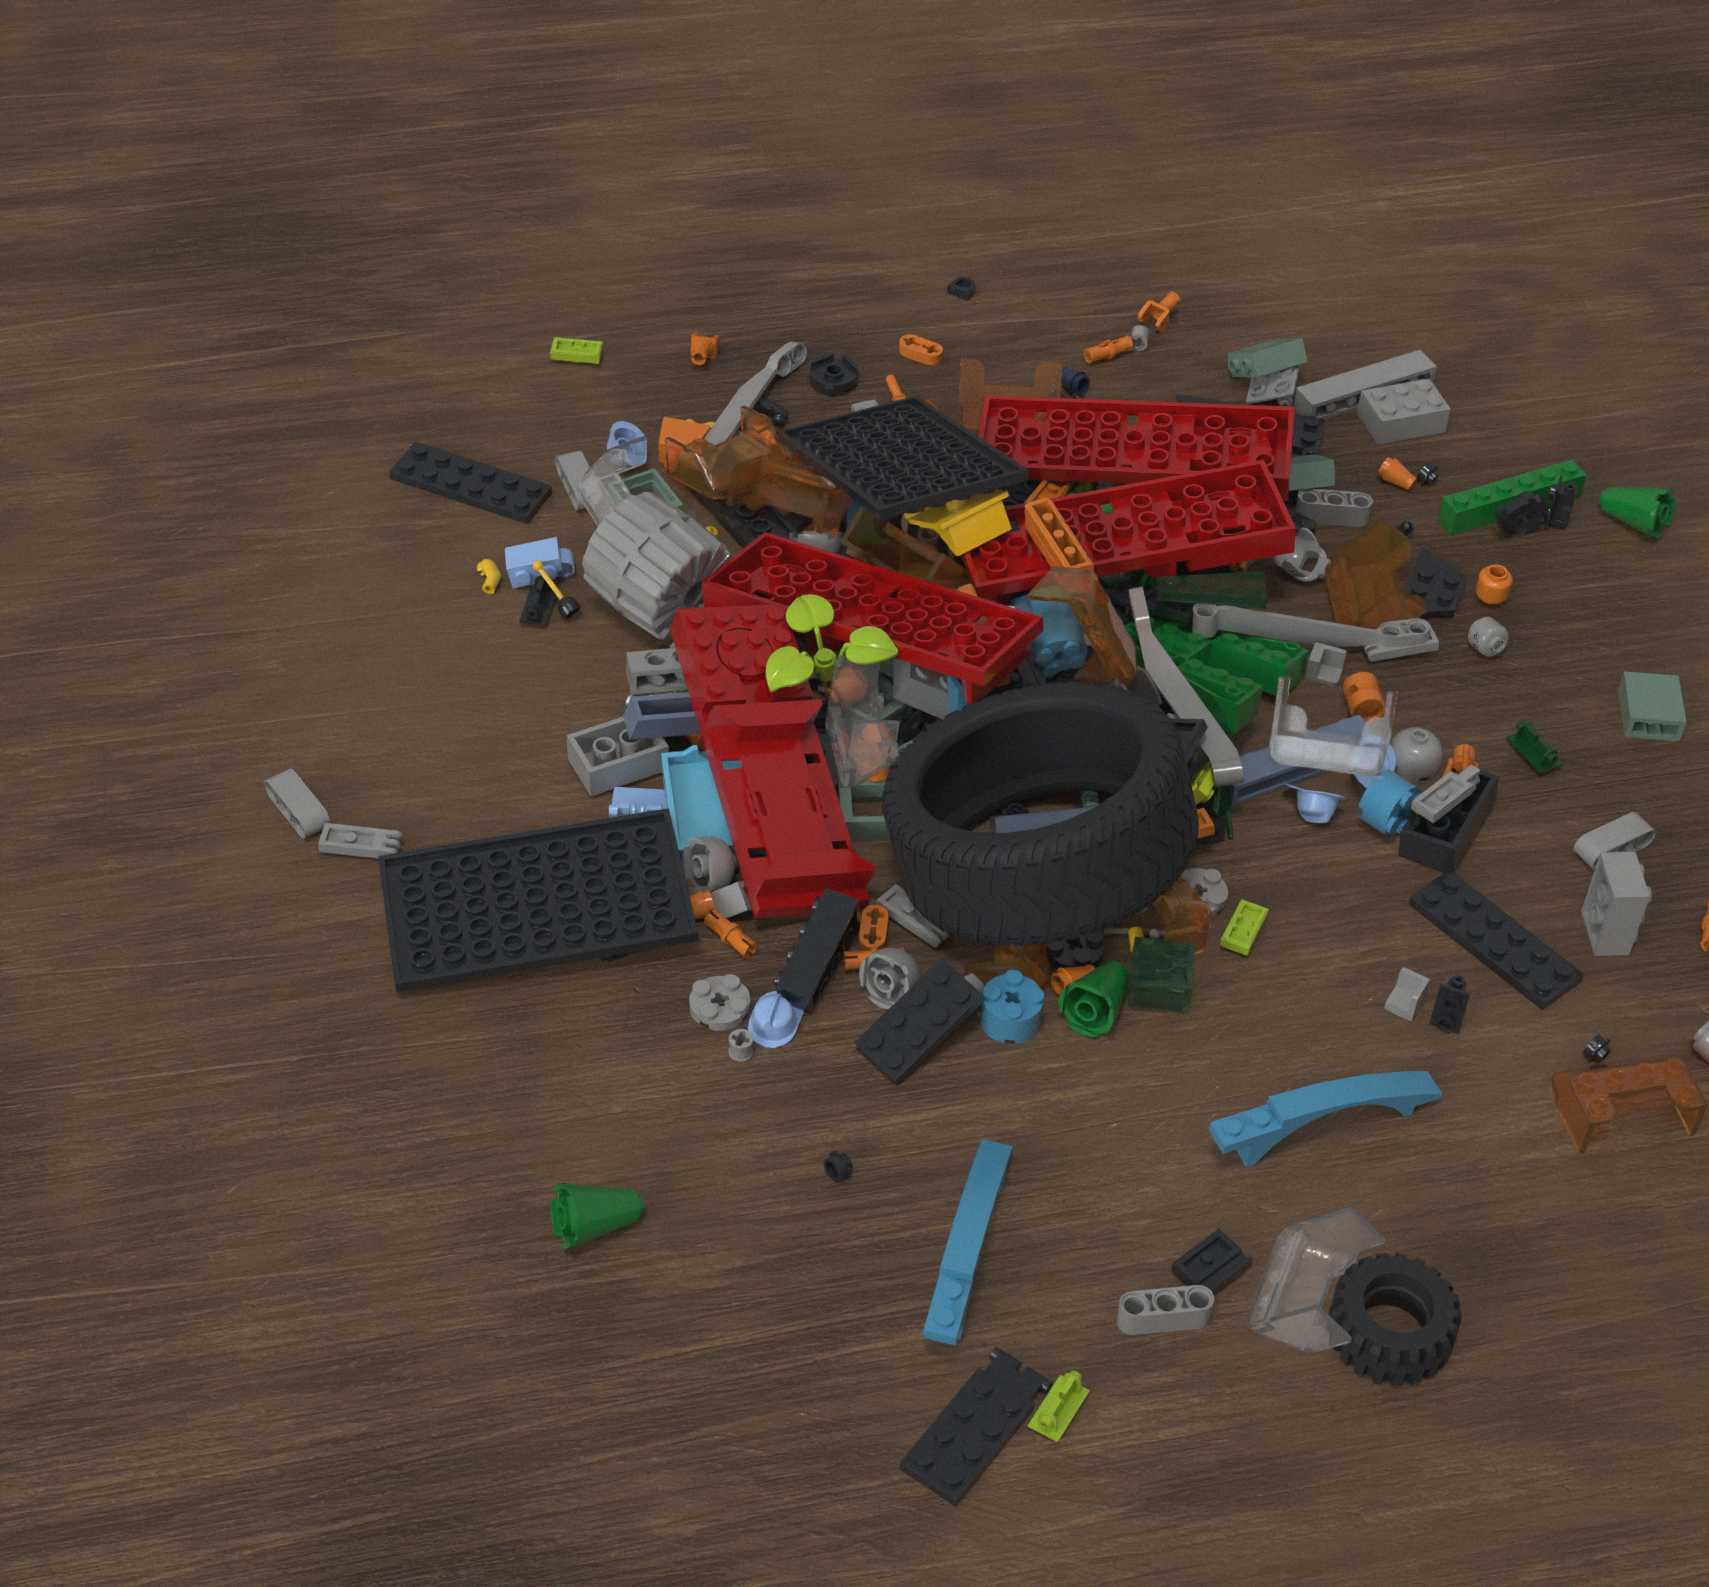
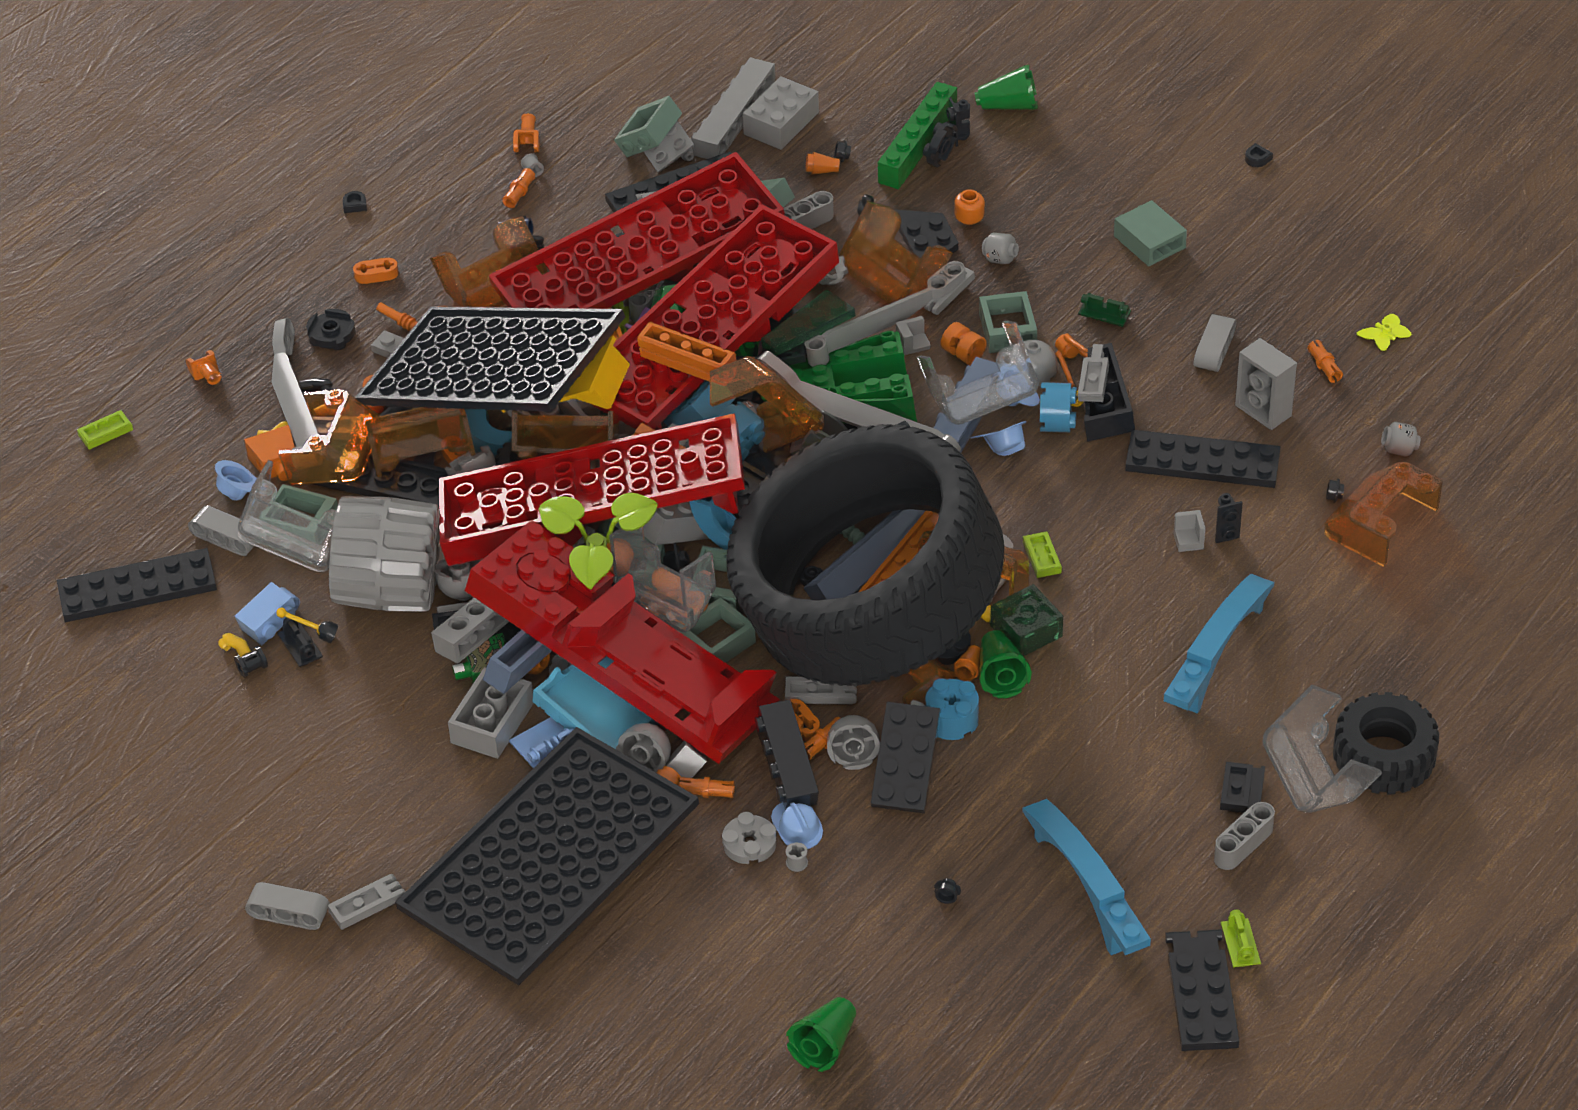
camera: 35 degrees left, 0 degrees up
(484, 593) = (251, 661): none -> black bush
(1438, 686) = (1003, 304): none -> sand green window

